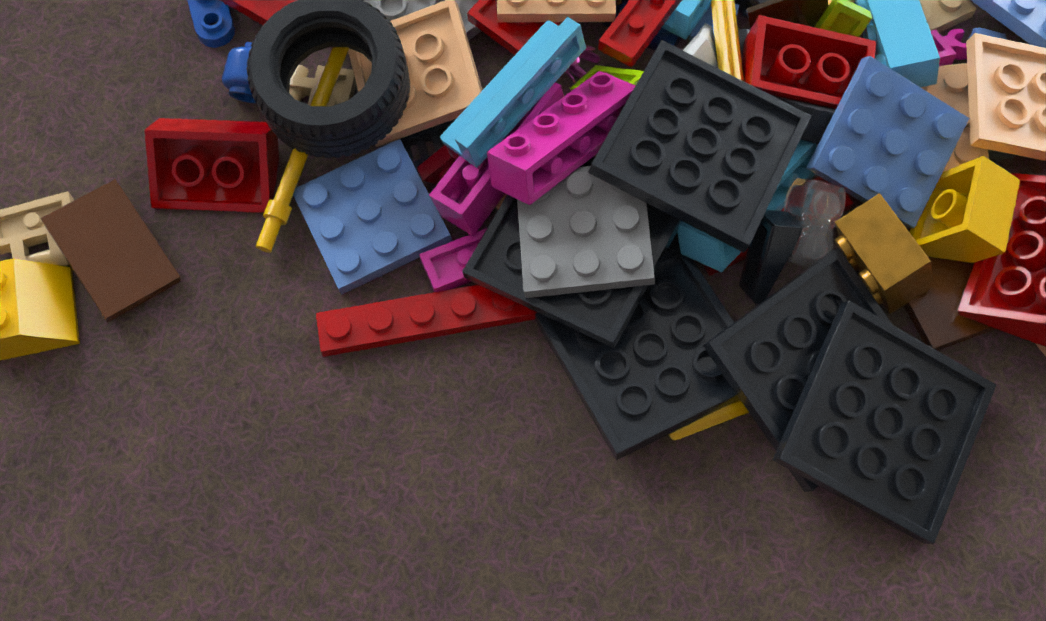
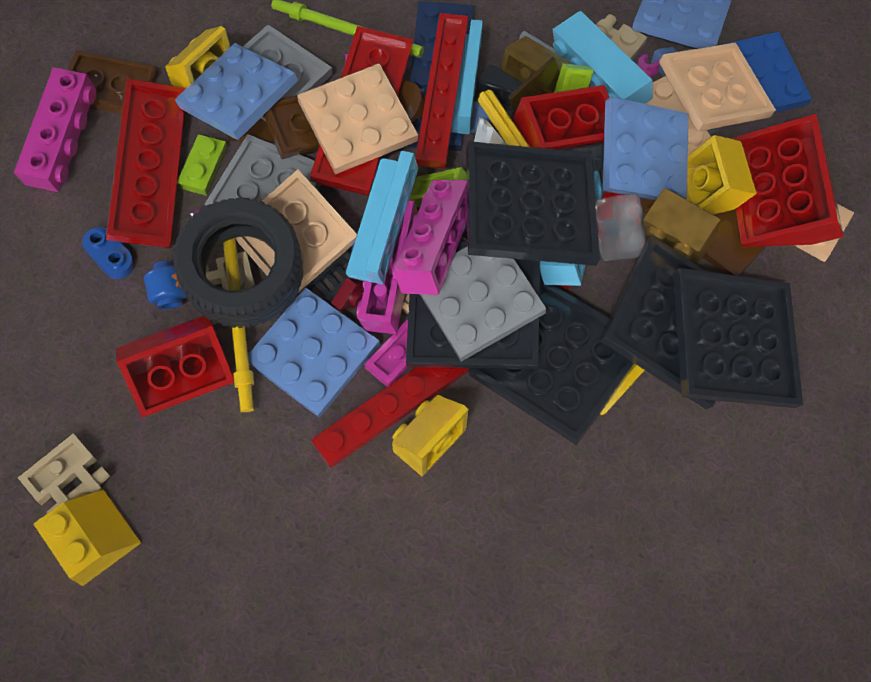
camera: 30 degrees left, 0 degrees up
(111, 250) = (131, 462): reddish brown tile -> none
(450, 367) = (430, 433): none -> yellow slope
(769, 253) = (611, 249): black slope -> none

